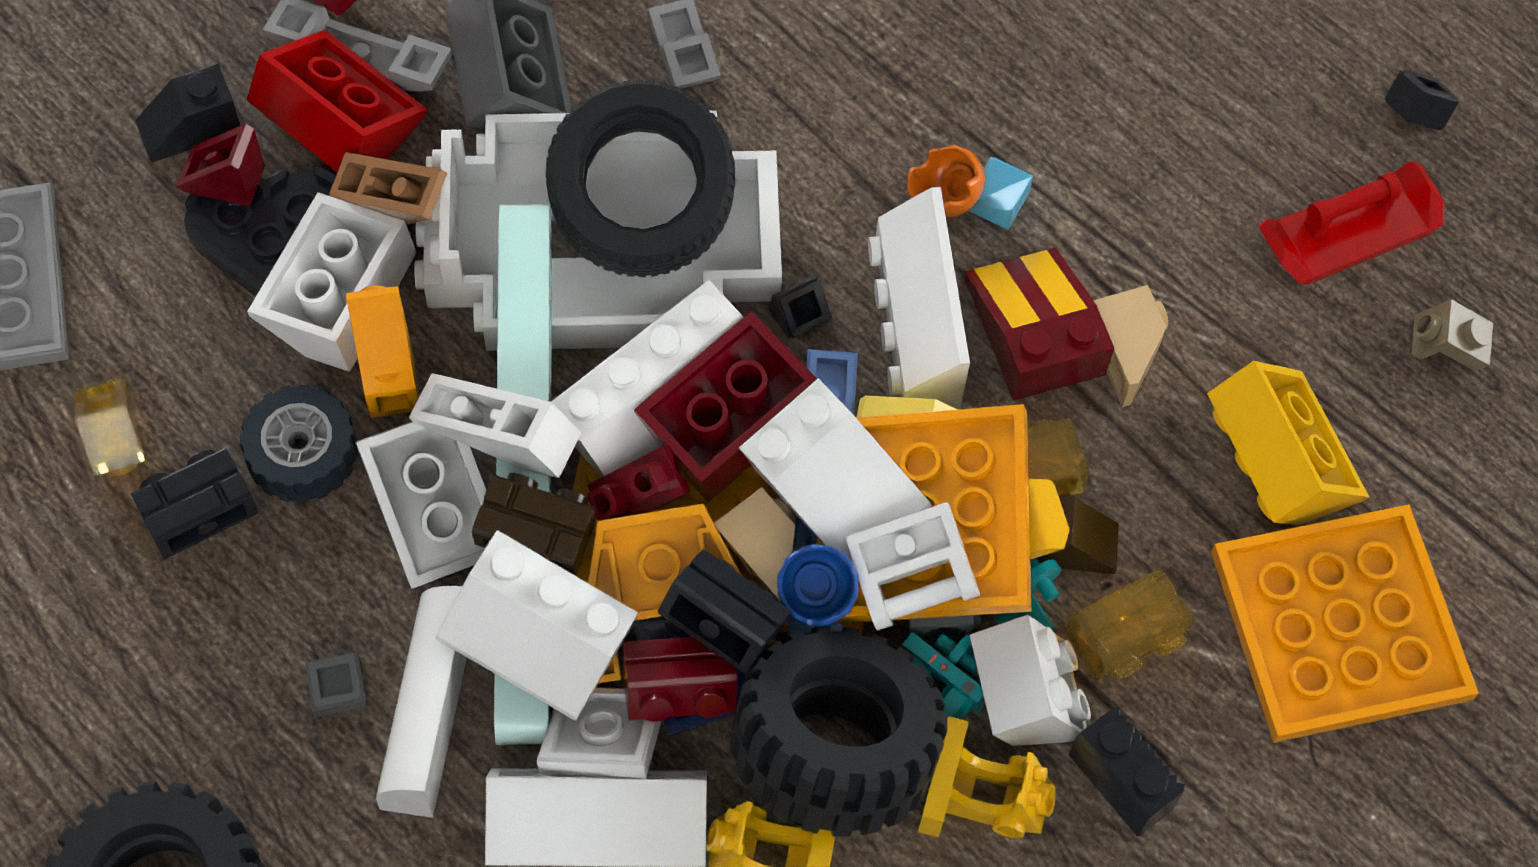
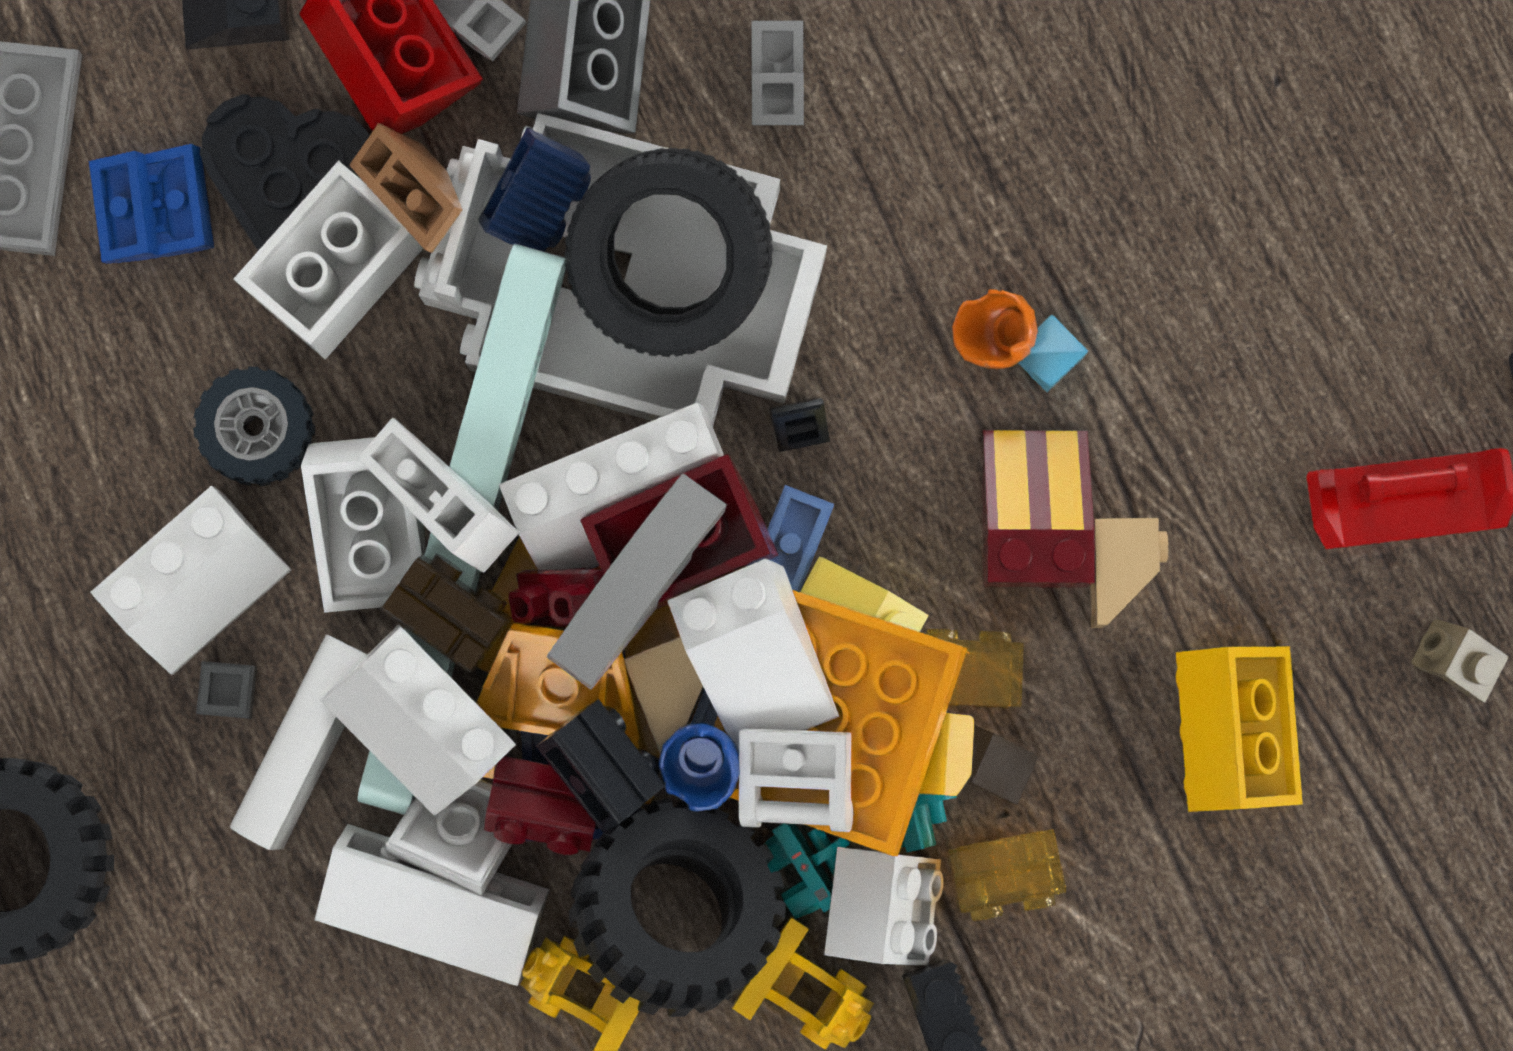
camera: 20 degrees right, 20 degrees up
(109, 427) = (72, 351): clear yellow slope -> none
(150, 290) = (151, 204): none -> blue slope
(194, 501) = (136, 460): black brick -> none
(225, 167) = (251, 98): dark red slope -> none
(274, 590) = (191, 580): none -> white slope
(383, 350) = (356, 368): light orange slope -> none
(504, 163) = (536, 193): none -> dark blue brick
(705, 436) = (636, 581): none -> light grey slope
(920, 301) = (917, 465): white slope -> none
(1343, 623) = (1219, 931): light orange plate -> none

